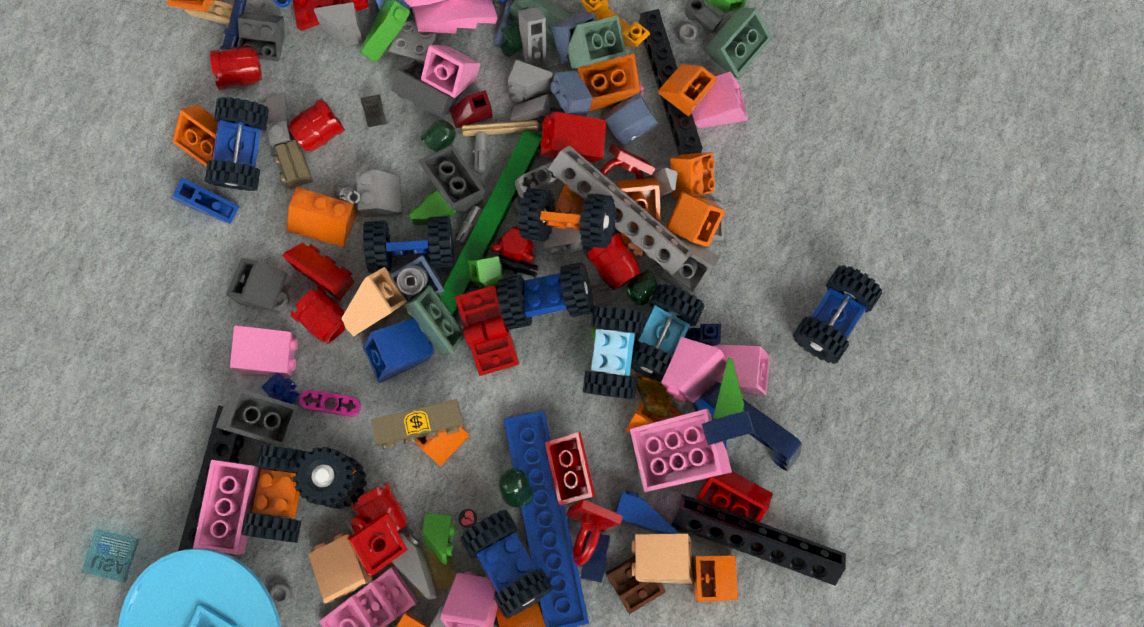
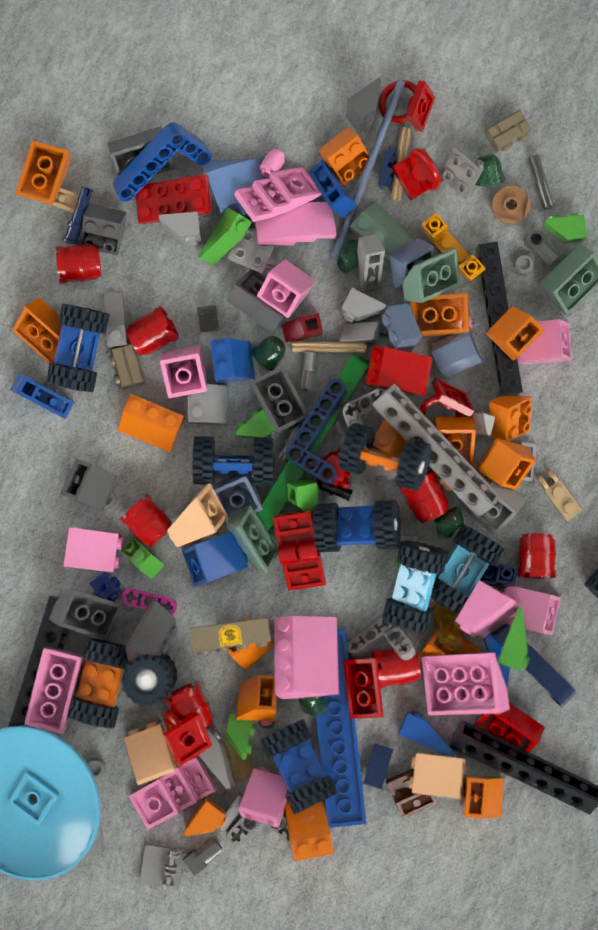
camera: 10 degrees right, 10 degrees up
(319, 269) = (148, 475): red slope -> none
(319, 356) = (142, 557): none -> bright green slope
(333, 428) = (152, 633): none -> dark grey slope
(347, 197) = (179, 406): light grey pin -> none
(350, 157) = (184, 371): none -> bright pink slope
(399, 145) = (232, 360): none -> blue slope
(412, 280) = (235, 500): light grey wheel -> none
(456, 494) = (257, 699): none -> orange slope
(492, 206) = (315, 432): none -> dark blue beam
(503, 441) = (305, 656): none -> bright pink slope
(591, 405) = (386, 633): none -> light grey beam
(592, 518) = (378, 734): red tile -> none
(605, 442) = (395, 670): none -> red piece
(728, 427) = (509, 674): dark blue slope -> none
(739, 312) = (537, 556): none -> red piece
(754, 251) = (559, 496): none -> tan hinge

